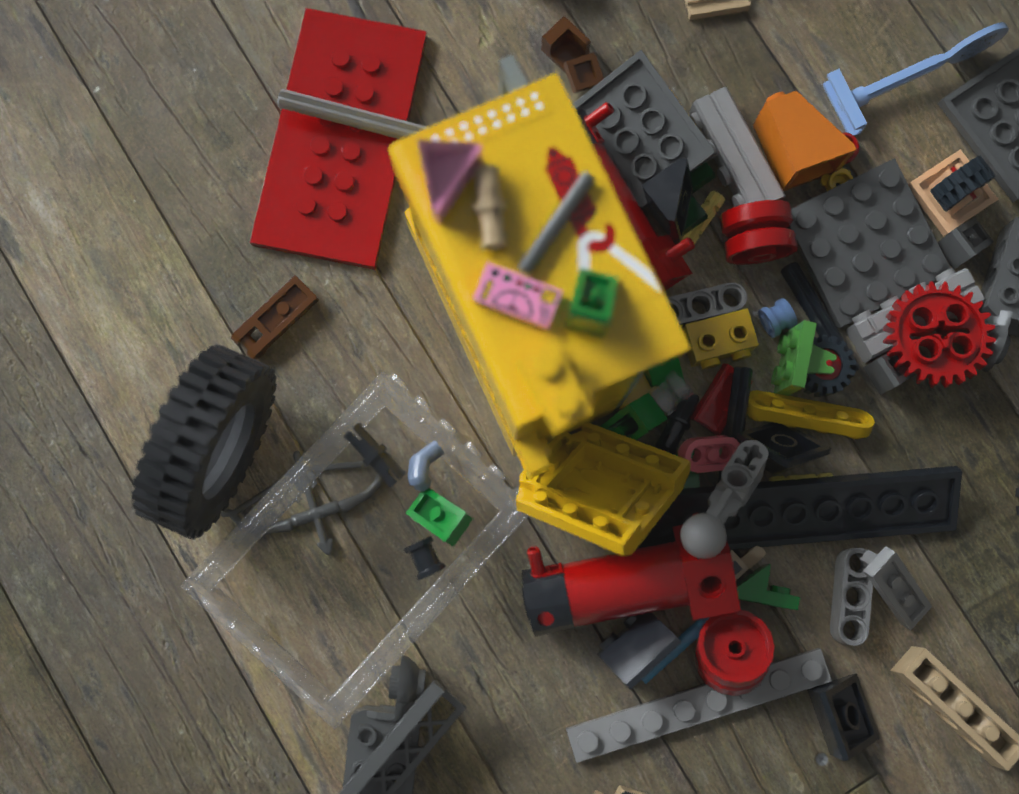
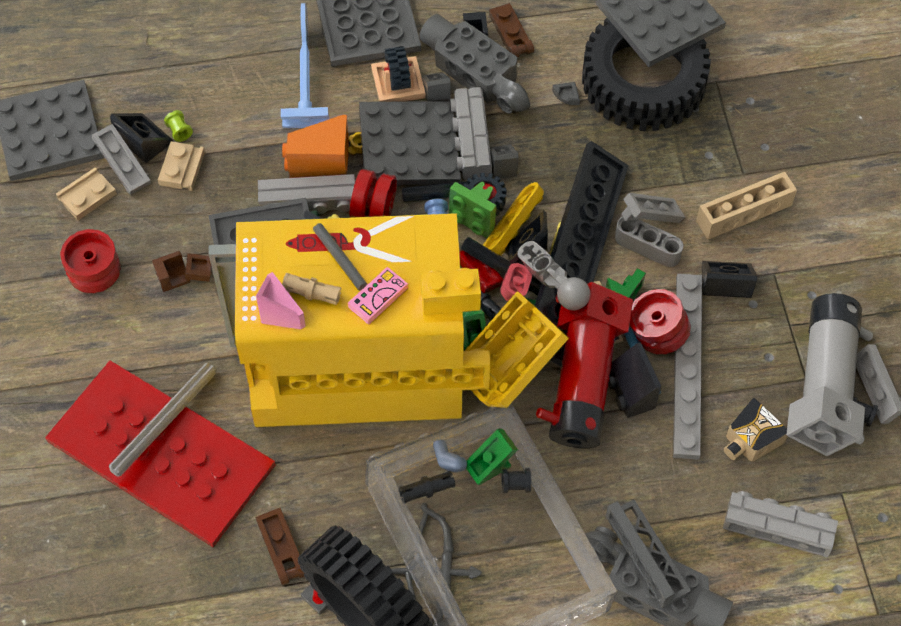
camera: 65 degrees left, 20 degrees down
(592, 302) = (405, 253): green slope -> none
(944, 361) = (474, 114): red gear -> none

